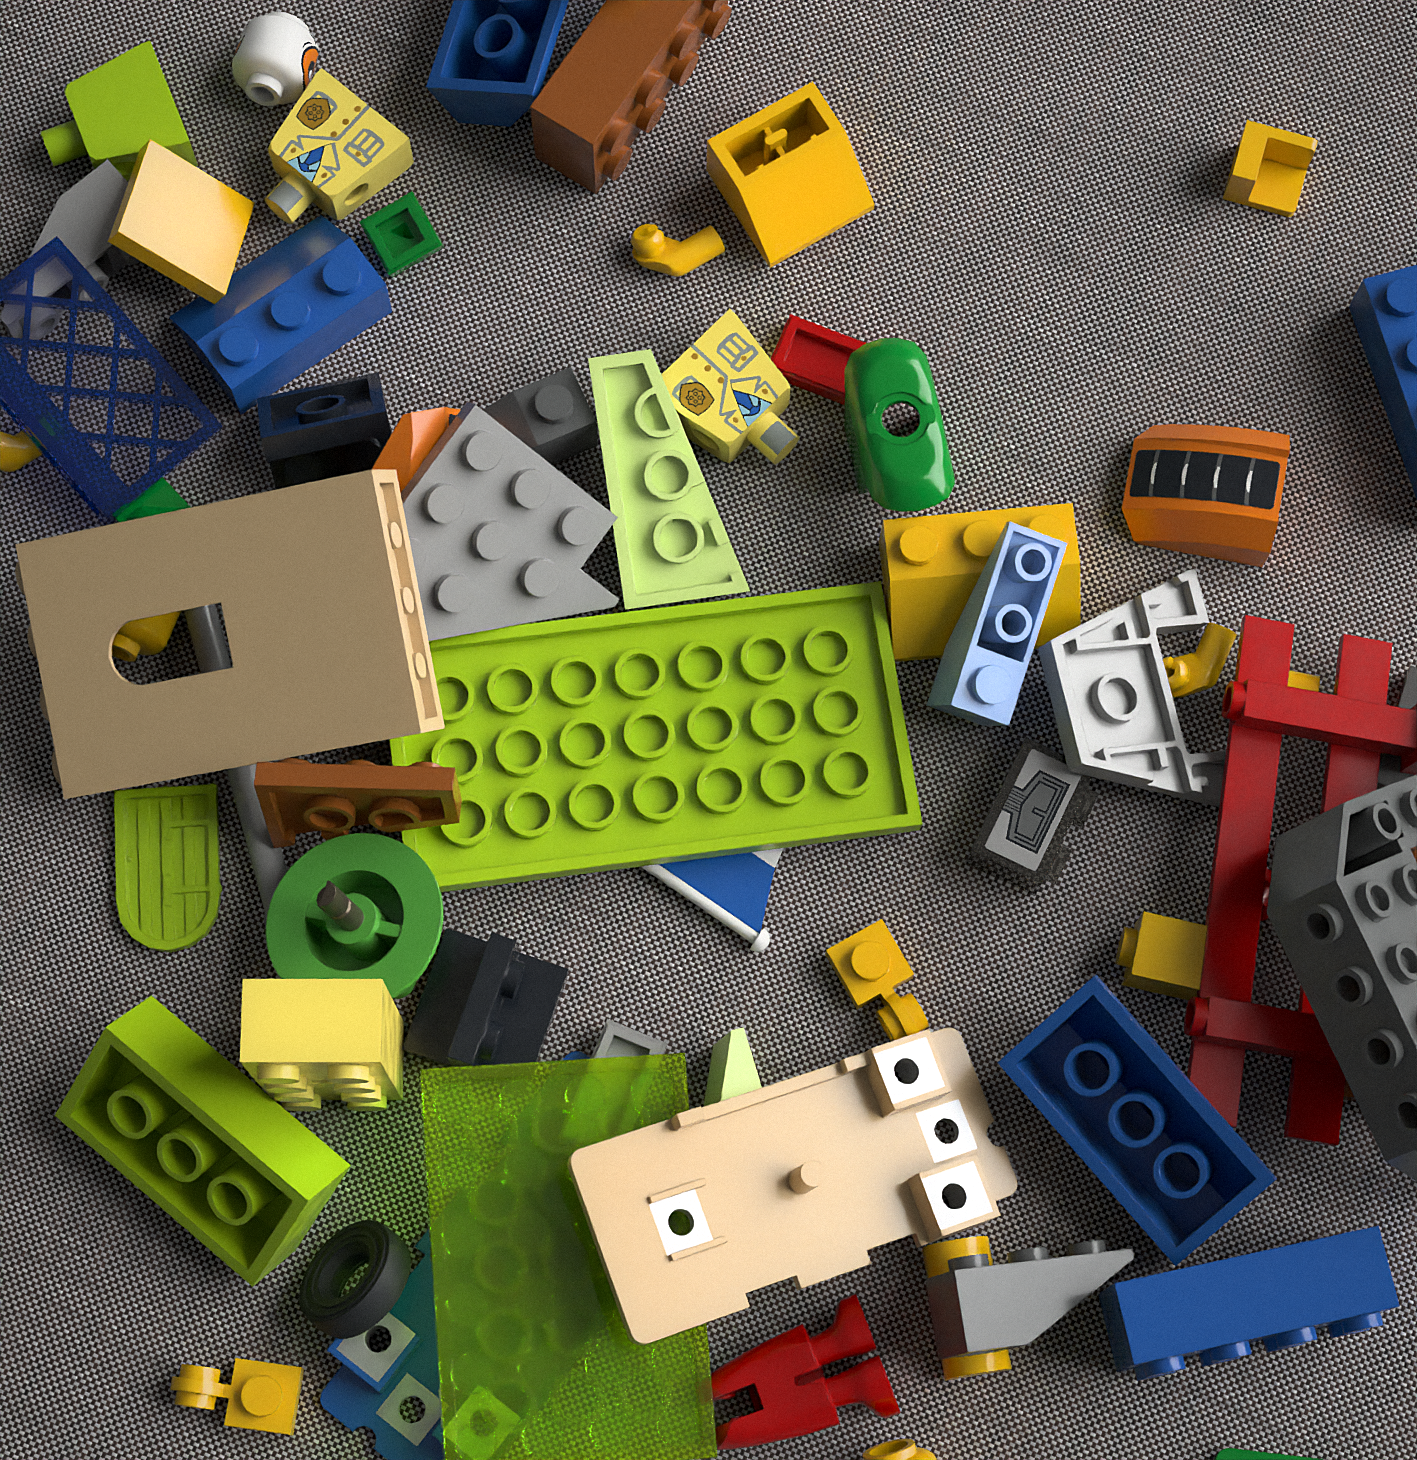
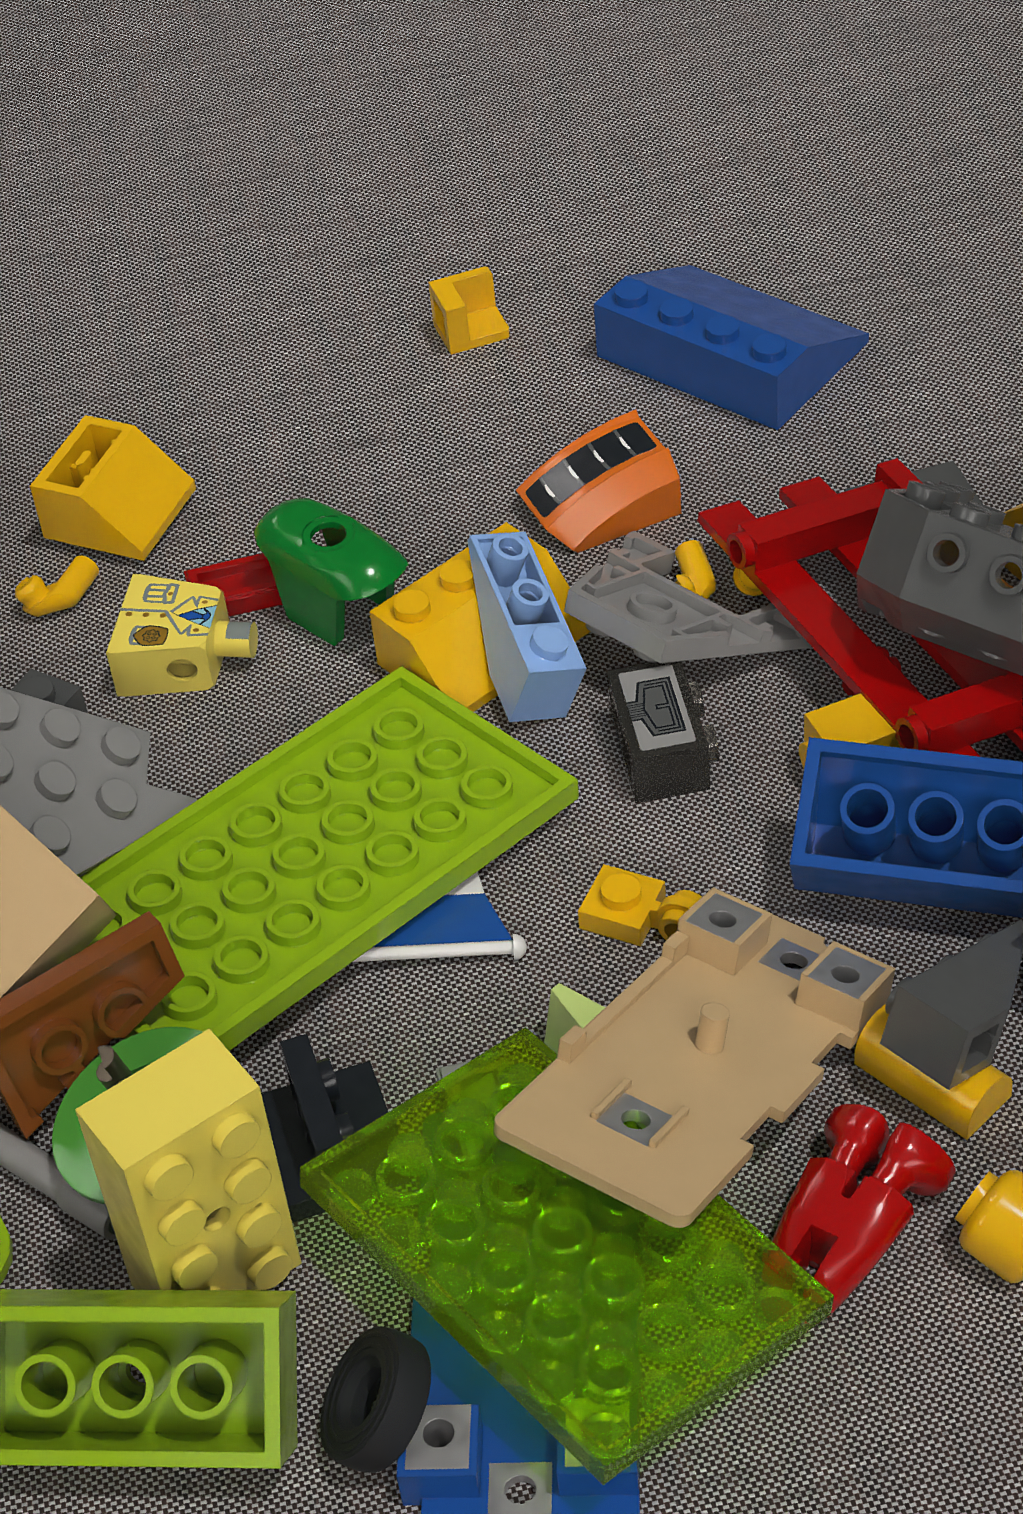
camera: 30 degrees left, 30 degrees down
(667, 522) = (195, 728): yellowish green wing -> none

